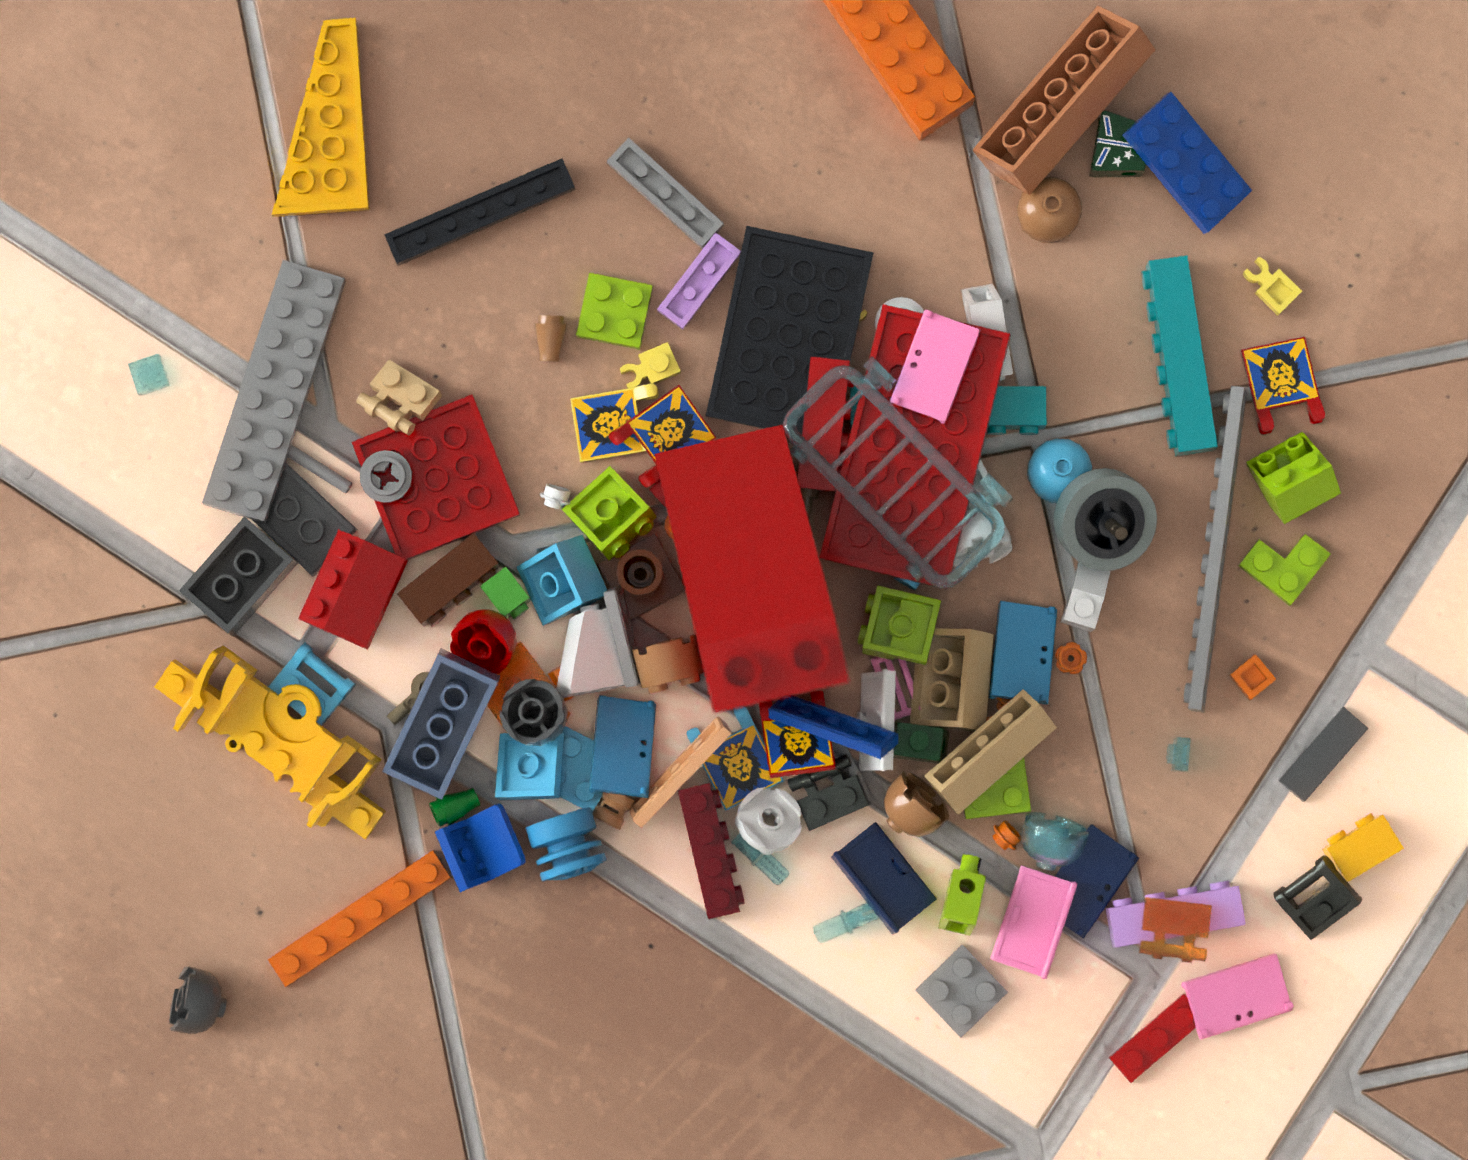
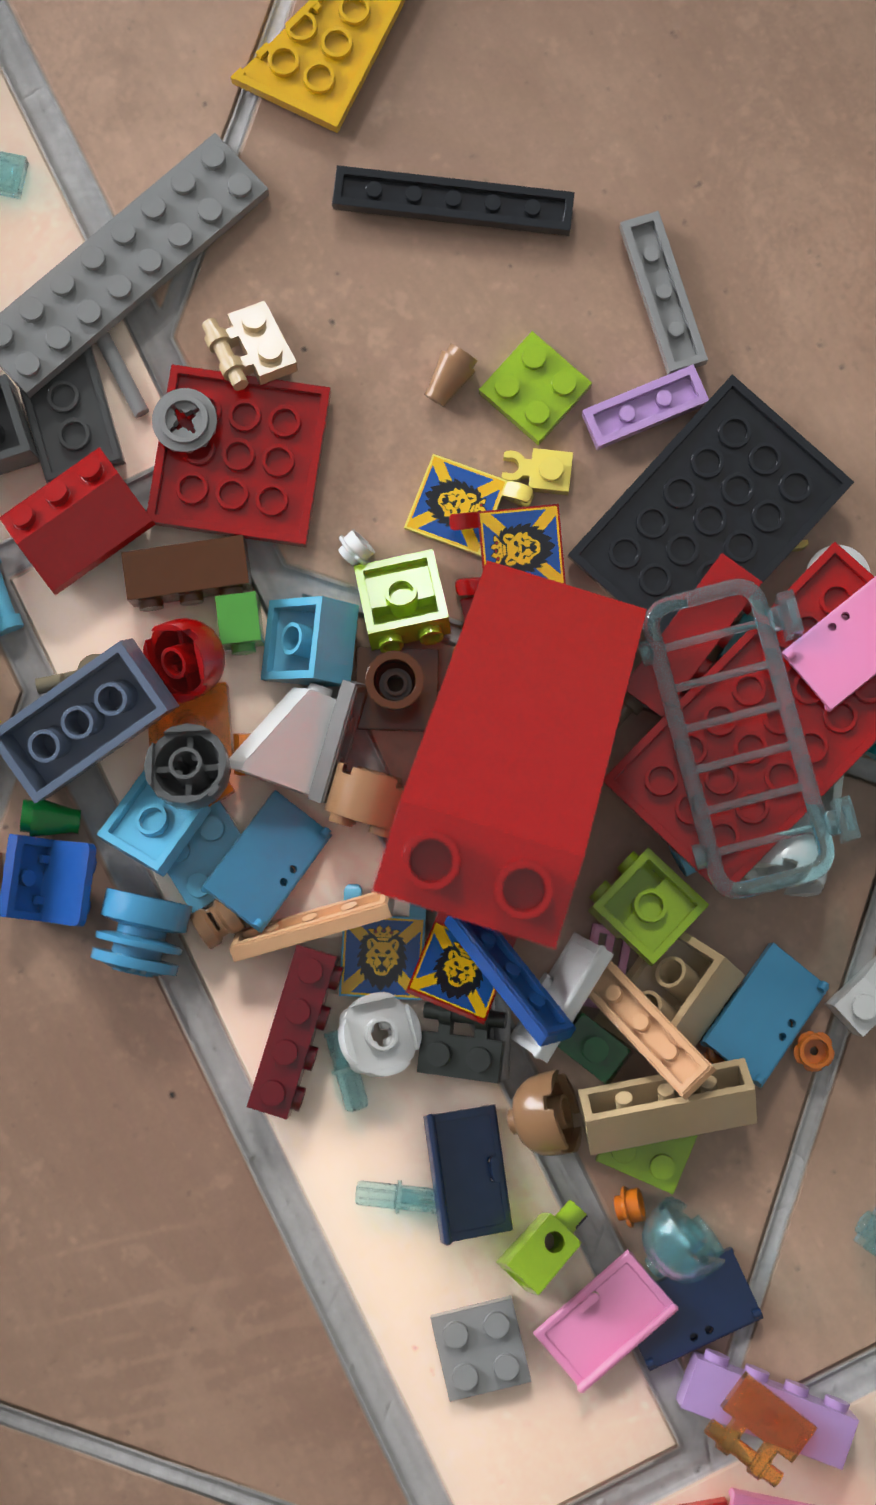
camera: 30 degrees right, 0 degrees up
(949, 707) = (650, 1031): none -> light nougat tile

